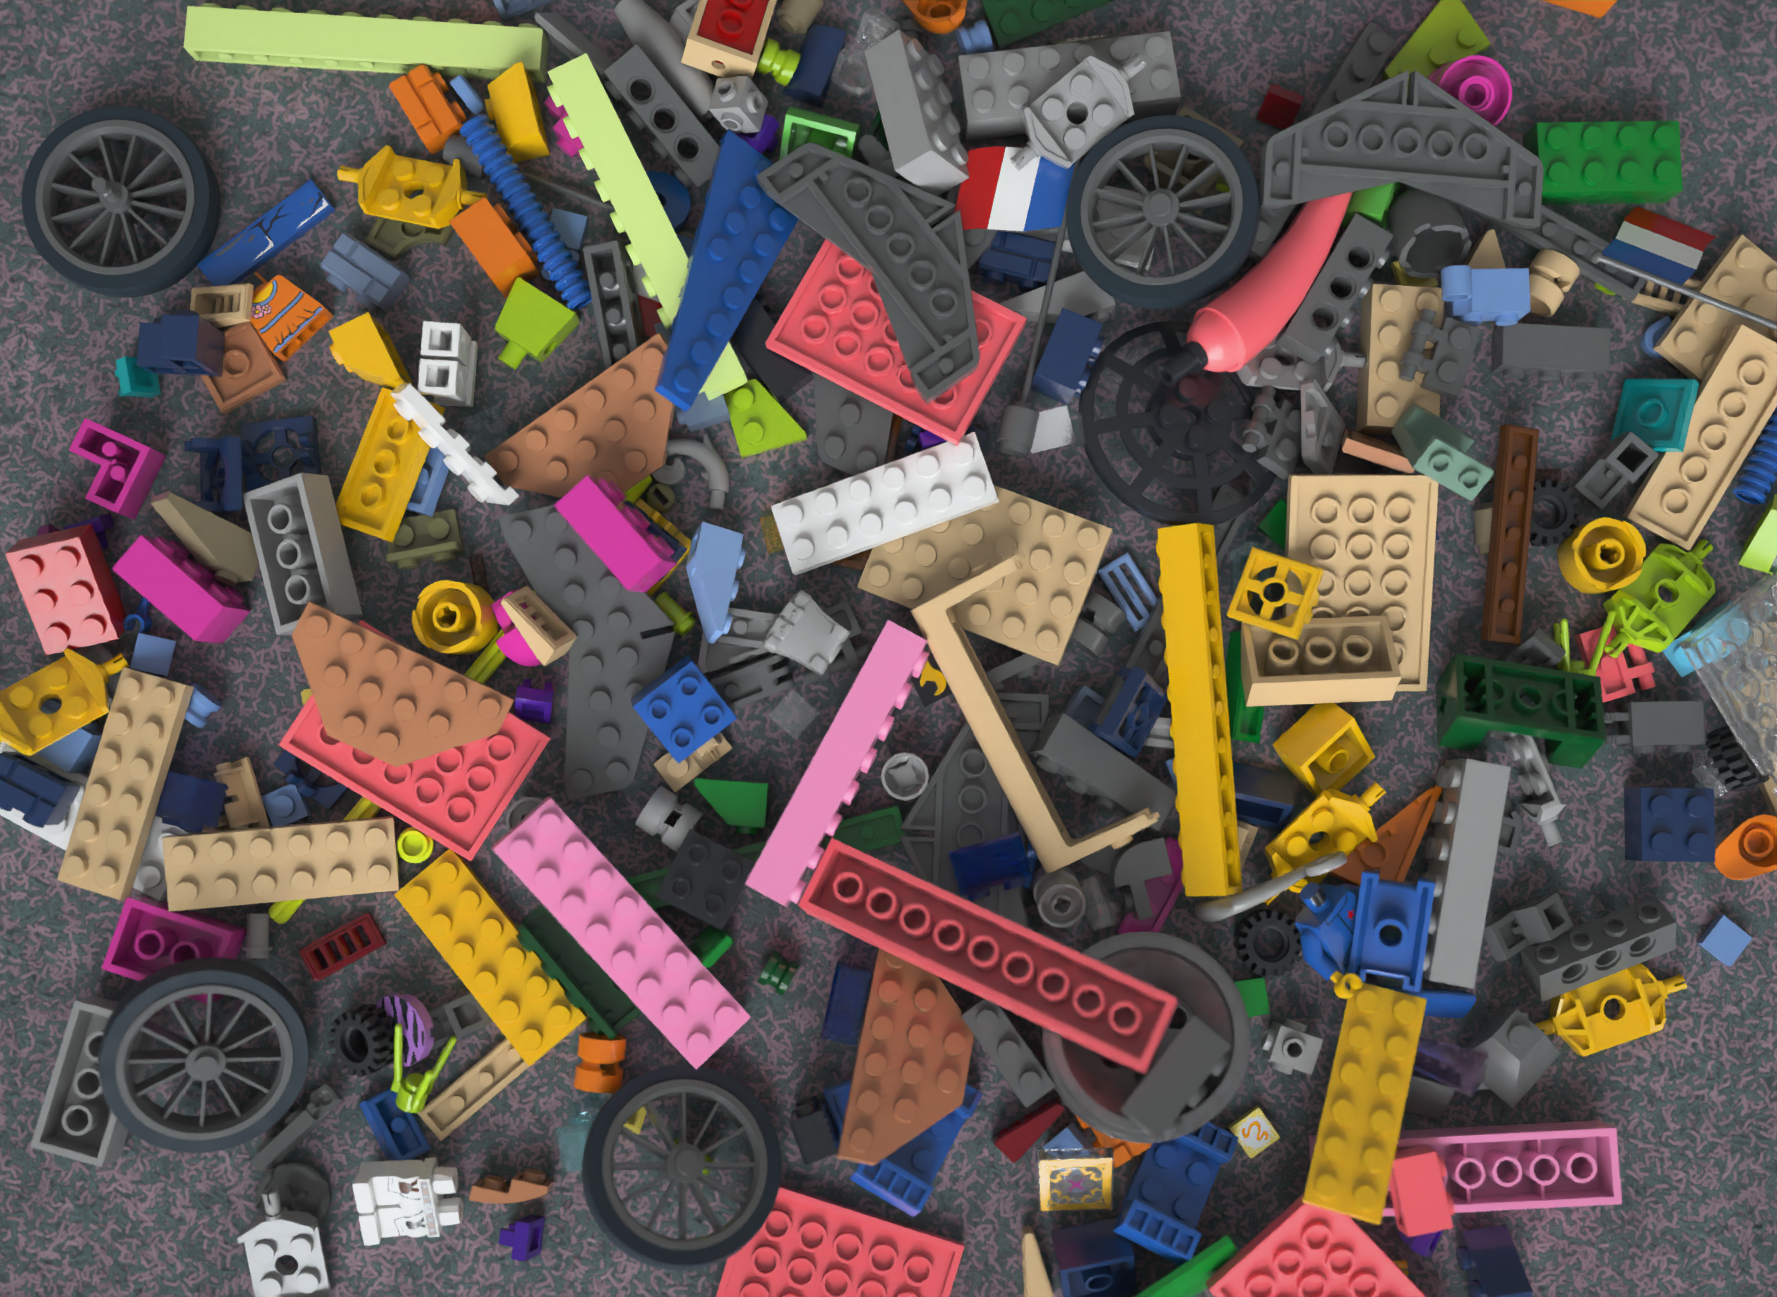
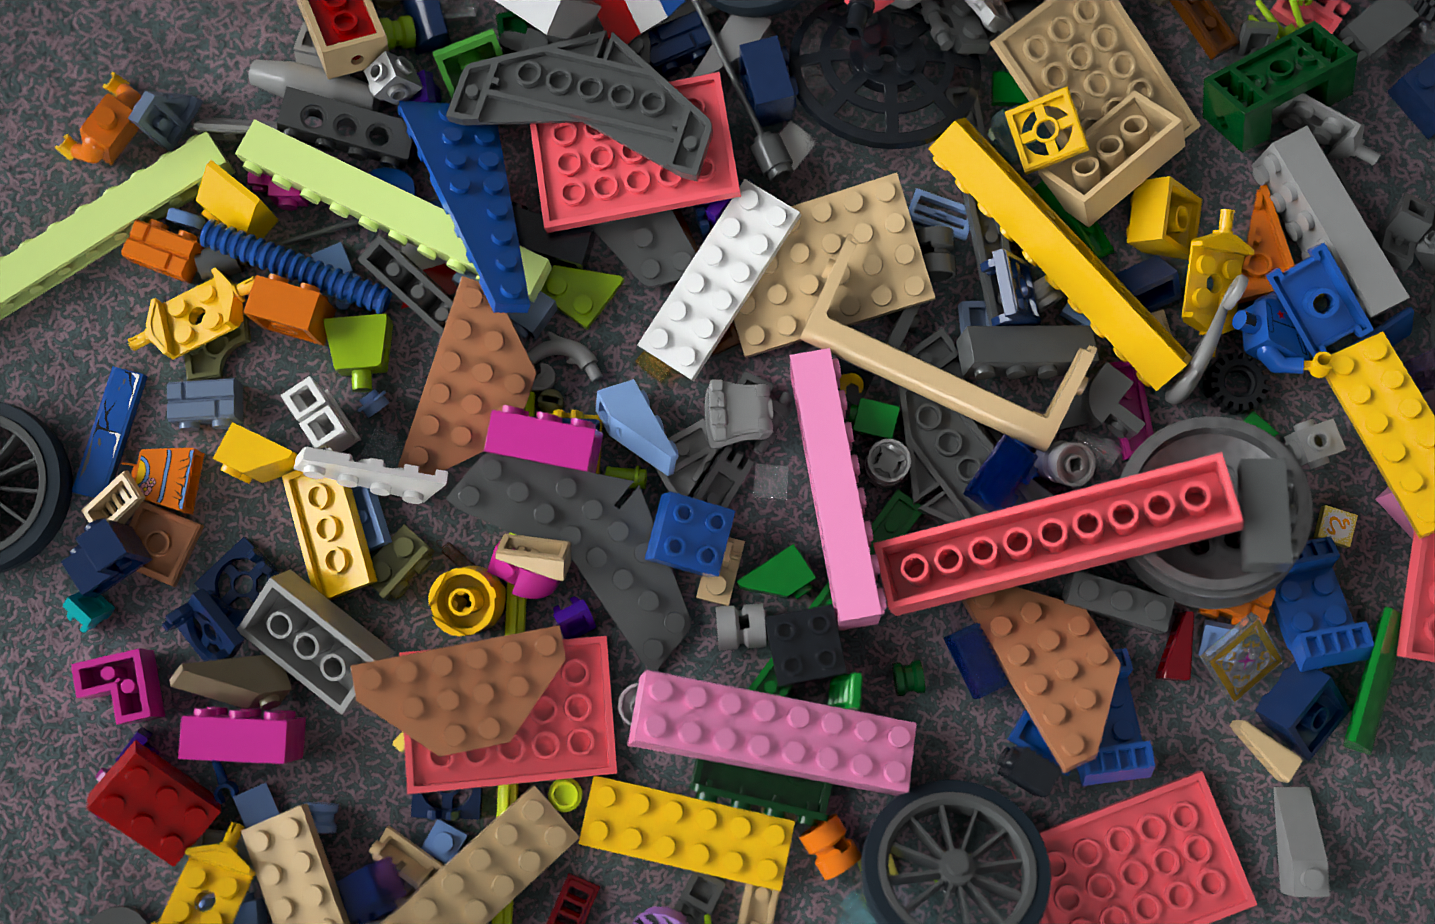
camera: 30 degrees left, 5 degrees down
(507, 382) = (373, 402): none -> medium blue plate
(924, 728) = (873, 419): none -> green brick

